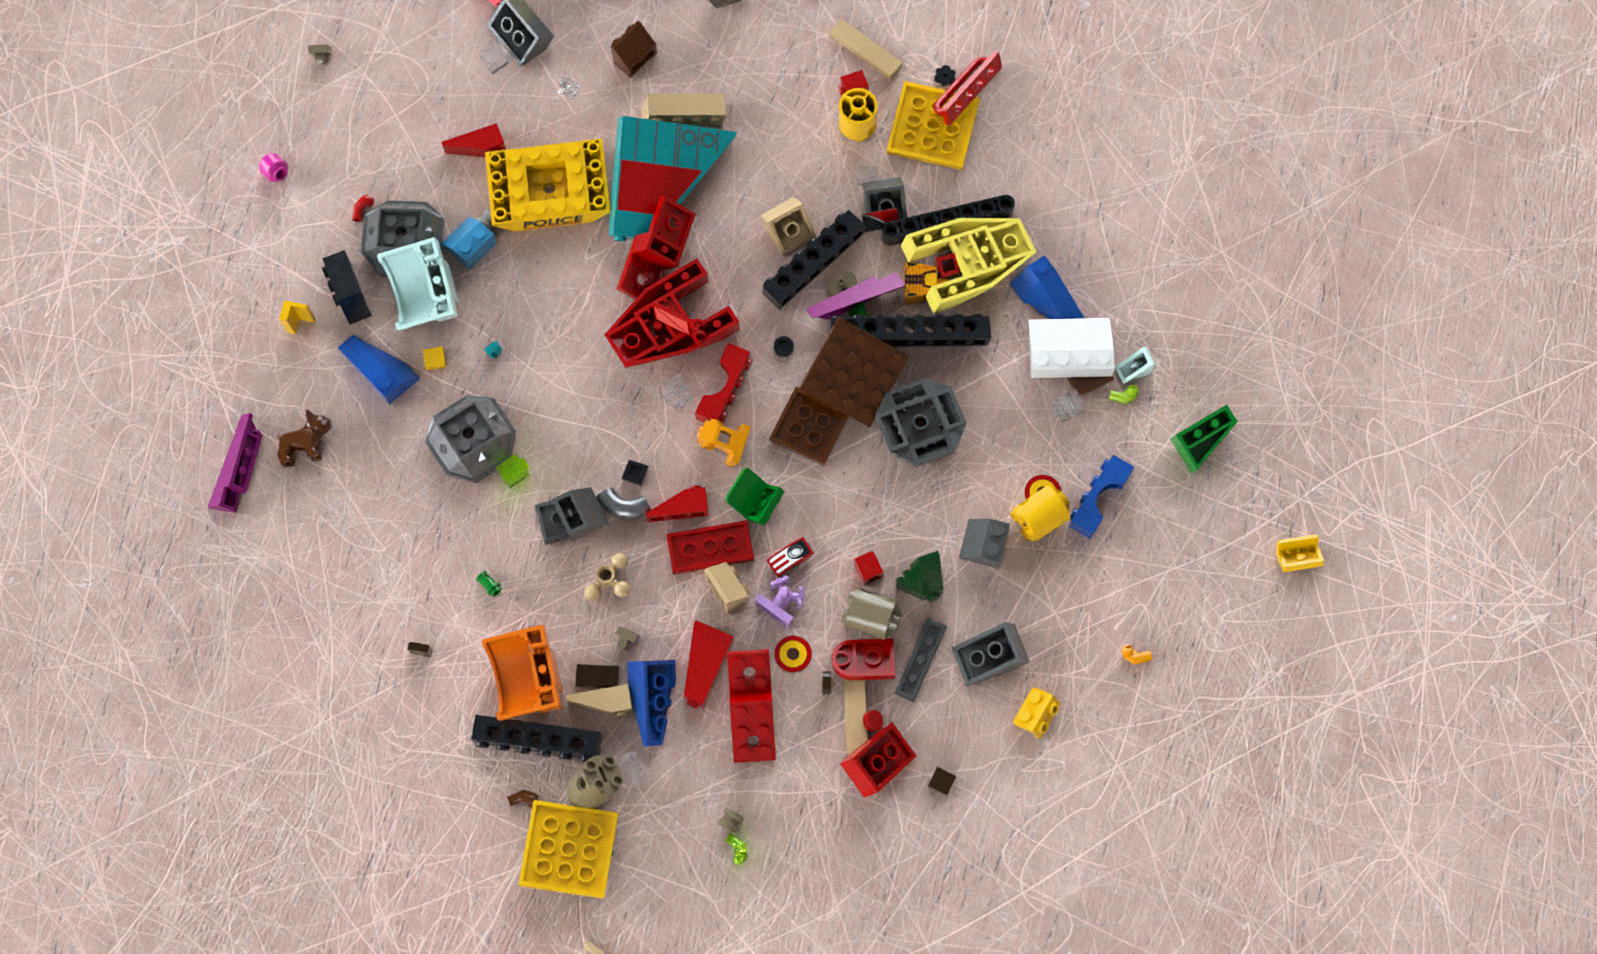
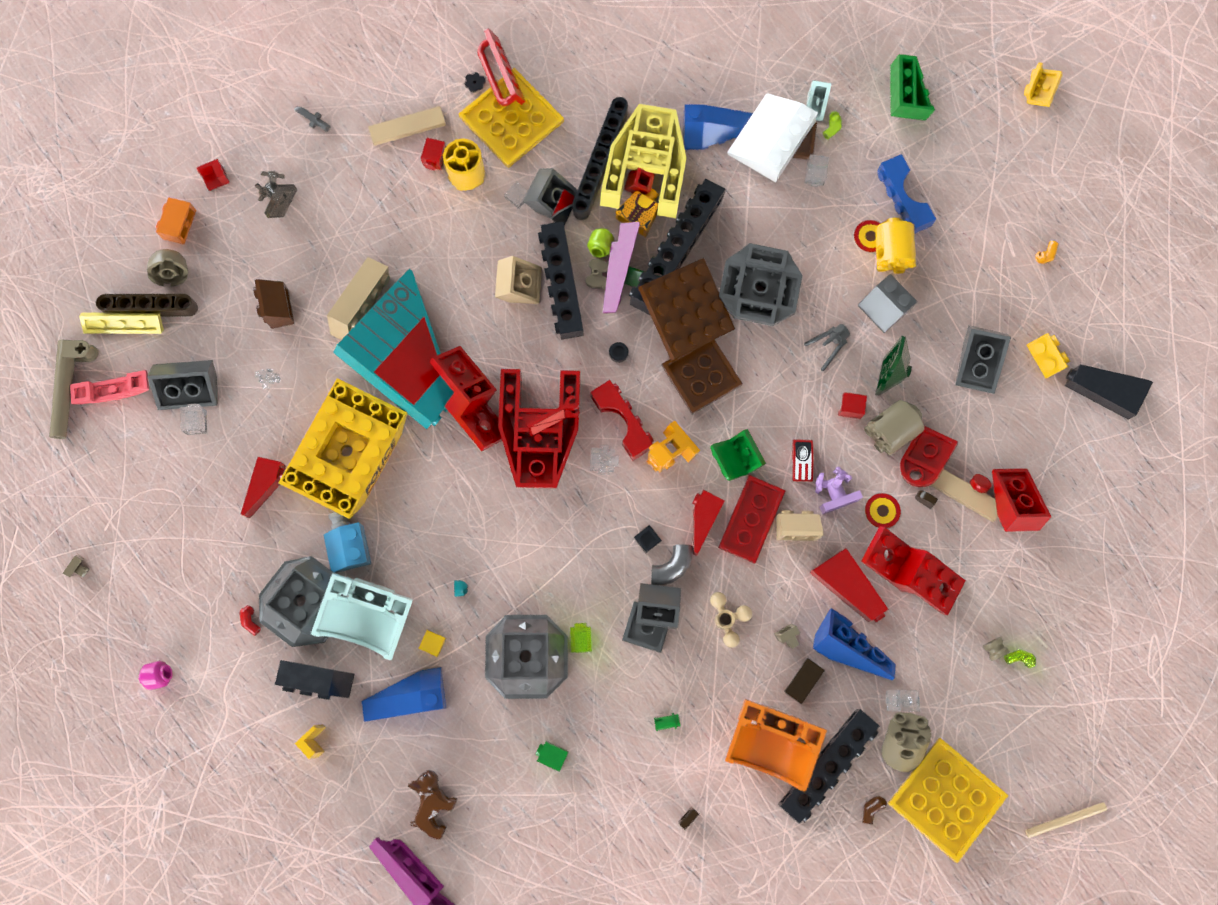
camera: 60 degrees left, 5 degrees up
(402, 509) = (551, 755): none -> green brick
(609, 701) = (835, 683): tan slope -> none
(870, 267) = (600, 242): none -> lime head
(920, 660) = (951, 415): dark grey tile -> none
(926, 516) = (836, 335): none -> dark grey plant
(942, 781) = (1060, 462): dark brown tile -> none
(1041, 786) = (1109, 389): none -> black slope

